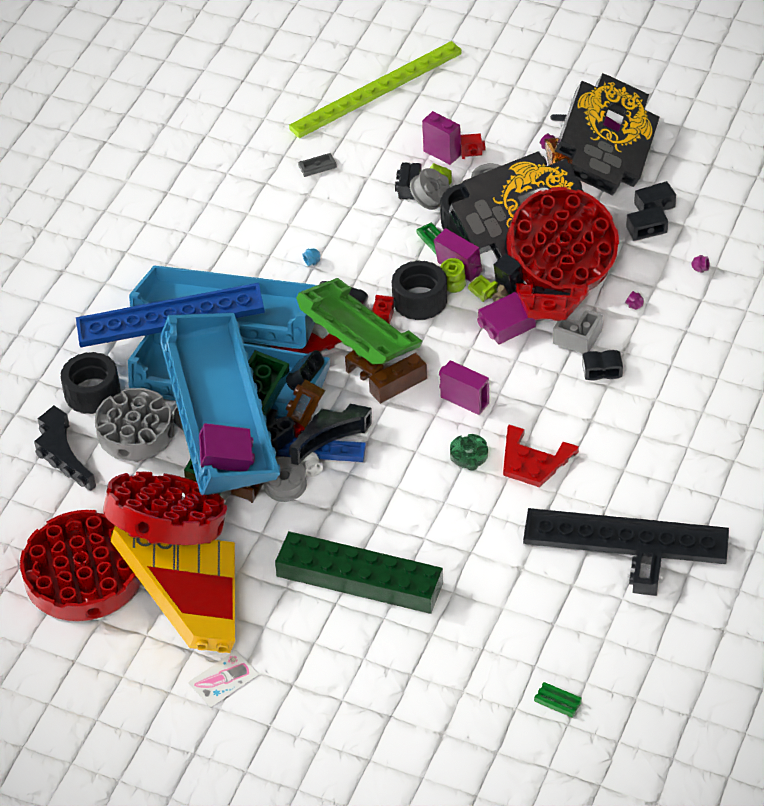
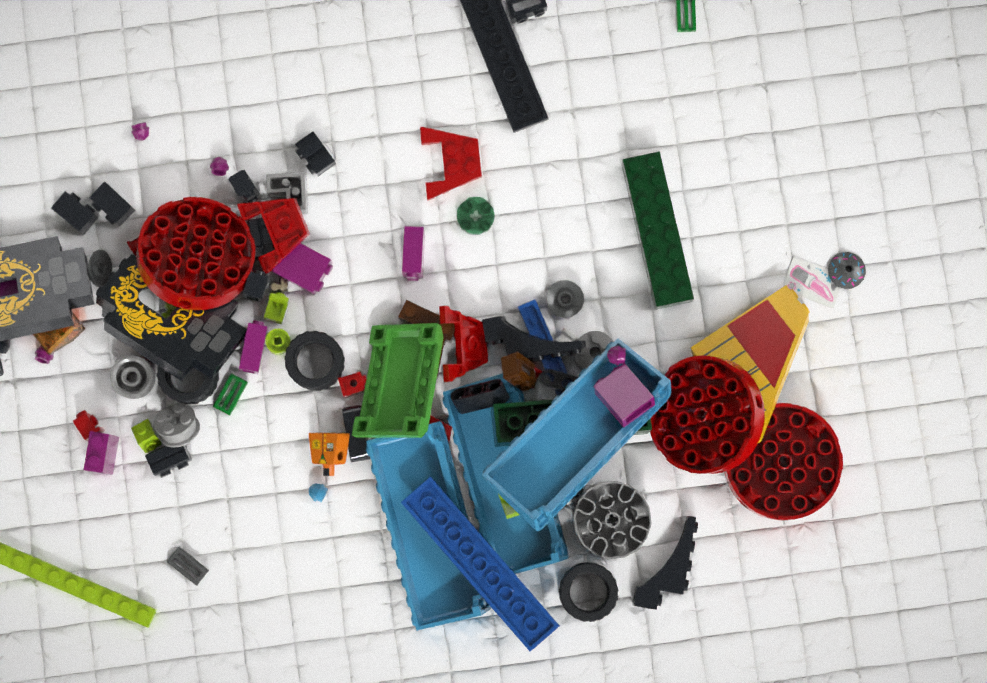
camera: 120 degrees left, 35 degrees up
(213, 716) = (840, 276): none -> dark grey dish
(263, 458) = (617, 355): none -> magenta plate
(340, 268) = (329, 450): none -> orange torso
(347, 479) = (565, 289): none -> dark grey dish
(357, 388) = (470, 343): none -> red wing
(594, 182) = (99, 267): none -> dark grey dish
(602, 300) = (244, 187): none -> black brick

